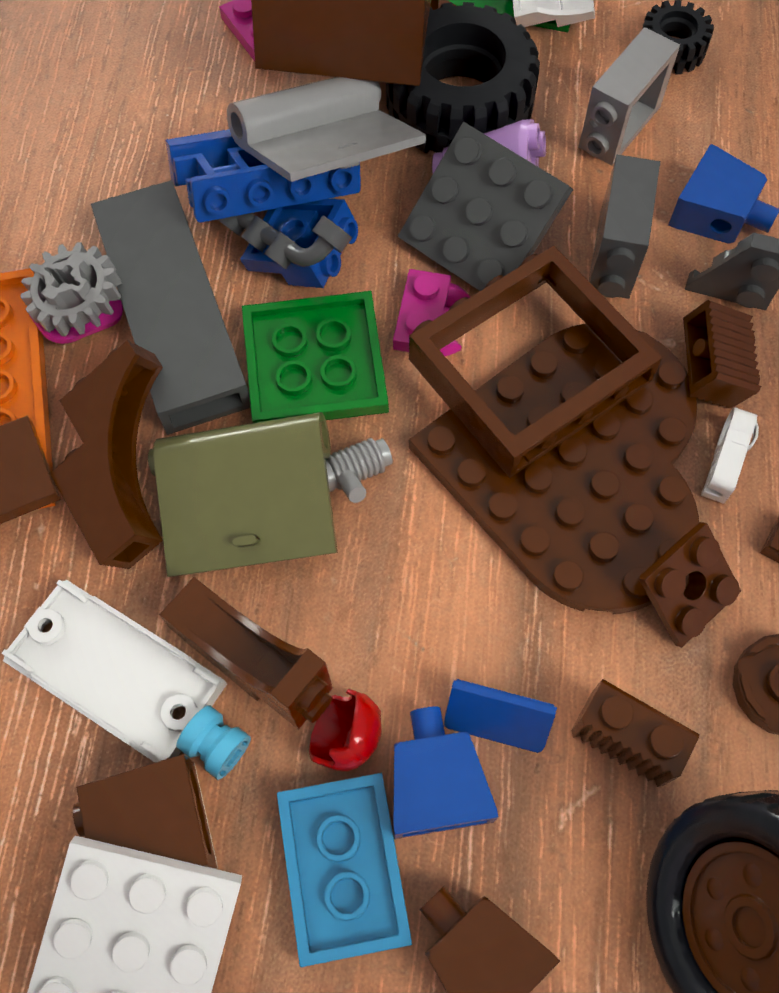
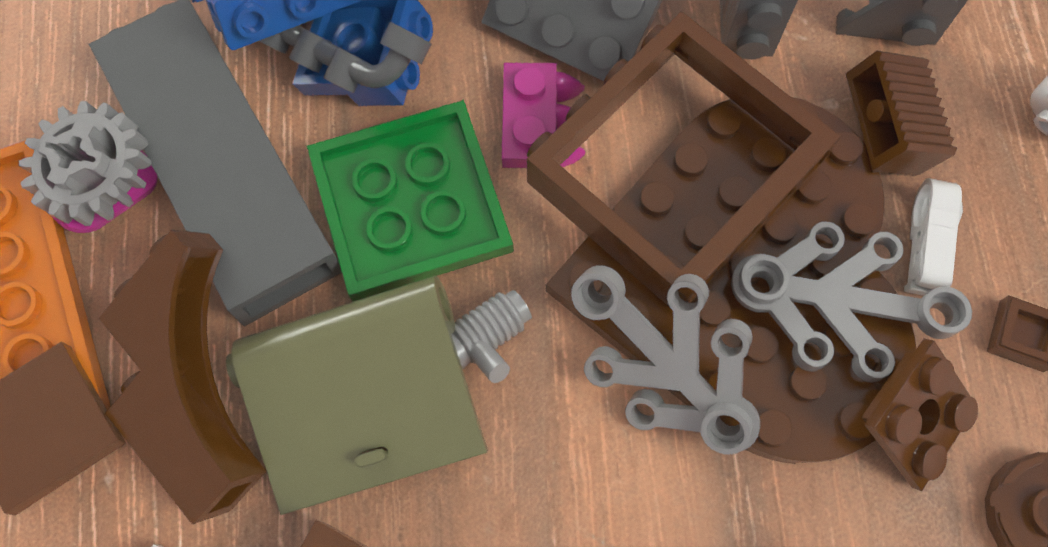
camera: 10 degrees left, 5 degrees up
(495, 510) = (672, 366): none -> light grey plant
(640, 482) = (837, 299): none -> light grey plant

